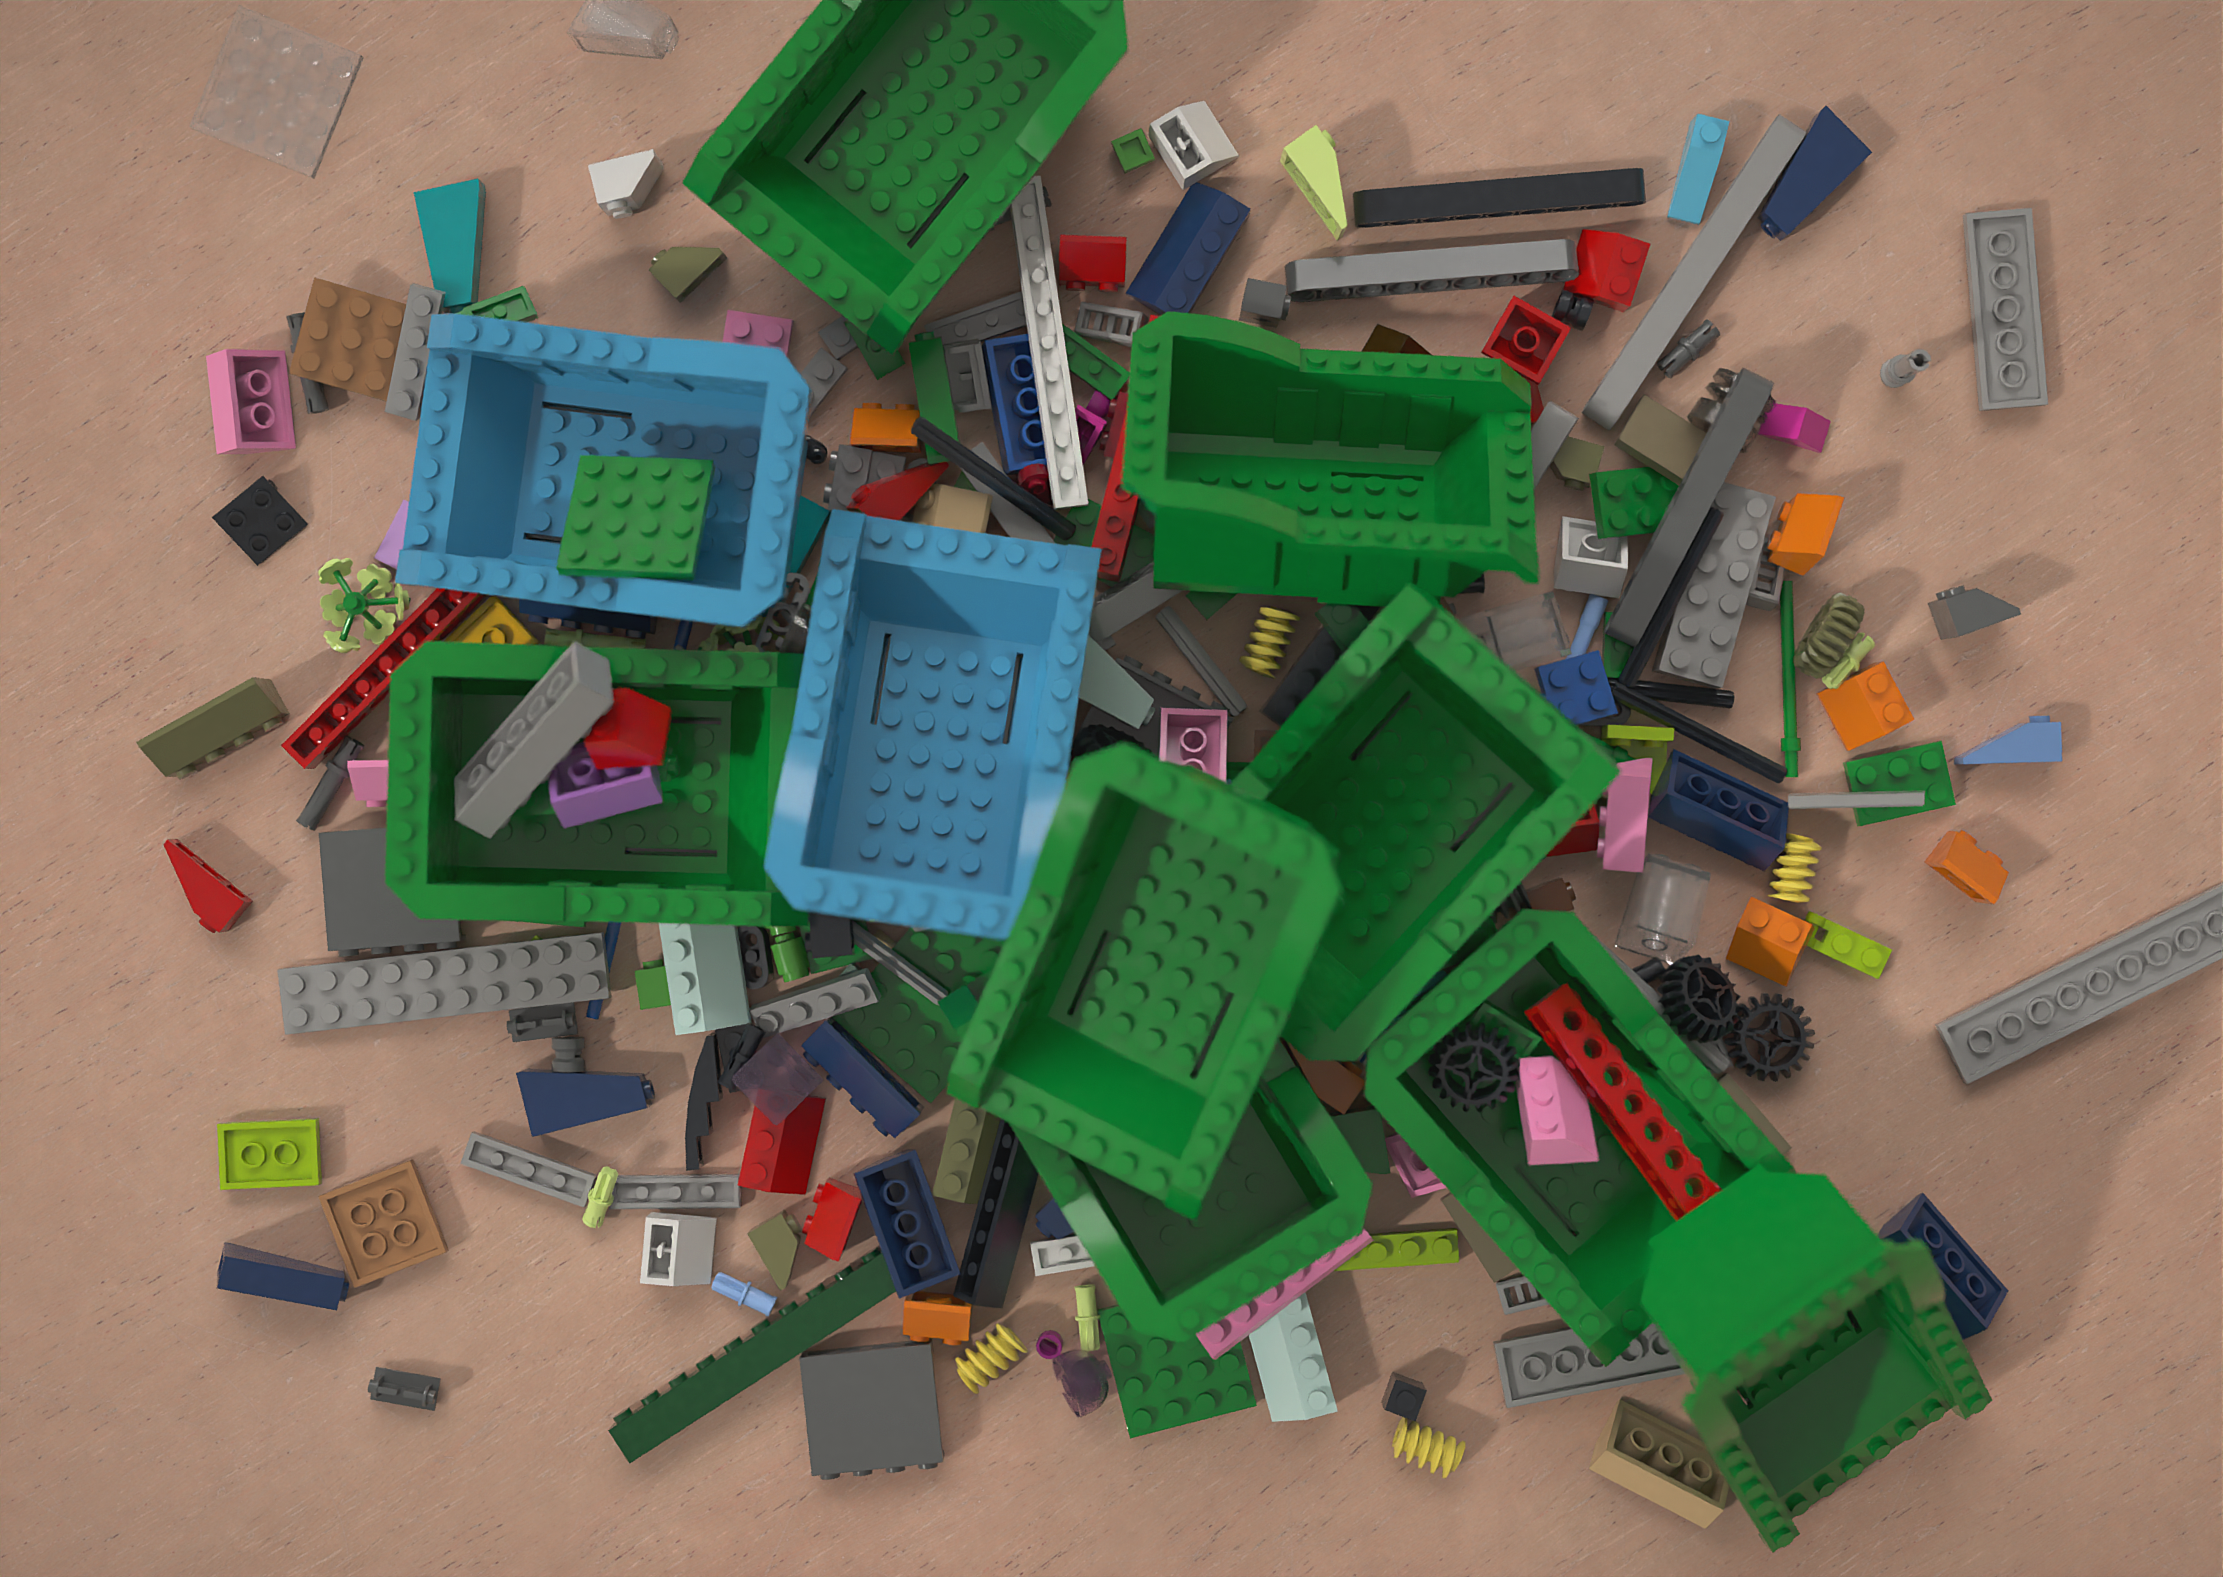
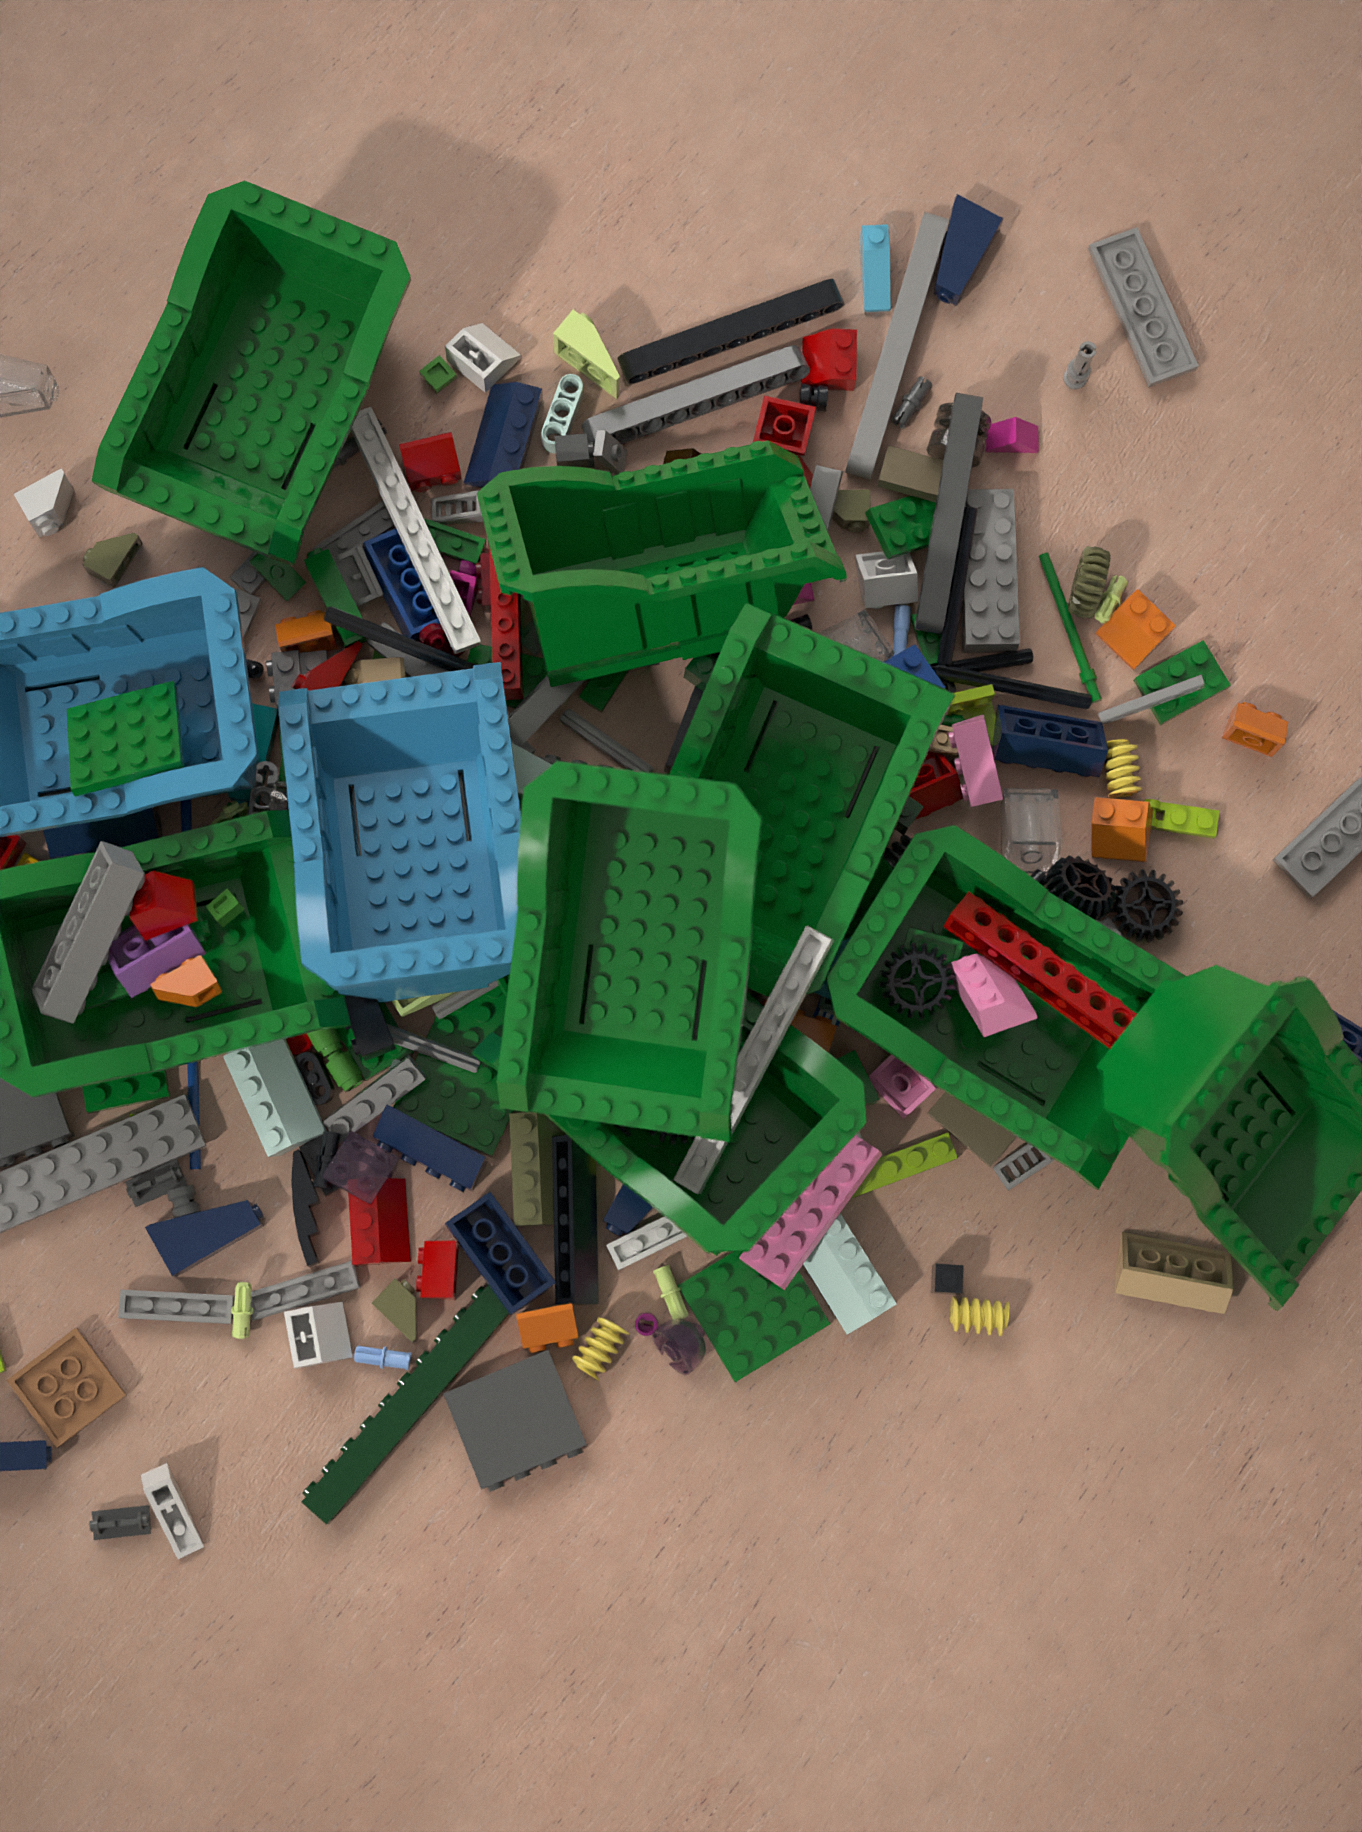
camera: 25 degrees left, 10 degrees down
(463, 1392) = (171, 1510): none -> white slope
(632, 834) = (187, 985): none -> orange slope
(652, 985) = (239, 1125): bright green brick -> none
(701, 746) = (225, 907): none -> bright green plate
(1268, 640) = (653, 712): light yellow piece -> none
(1273, 228) = (562, 401): none -> light aqua beam
(1278, 1095) = (760, 1050): none -> white plate
(1308, 311) = (609, 452): none -> light grey plate
(1561, 1365) = (1080, 1210): light grey plate -> none
(1761, 599) = (1028, 569): light grey slope -> none
(1803, 531) = (1043, 509): orange slope -> none
(1966, 611) = (1190, 533): dark grey slope -> none
(2022, 743) = (1269, 623): medium blue slope -> none

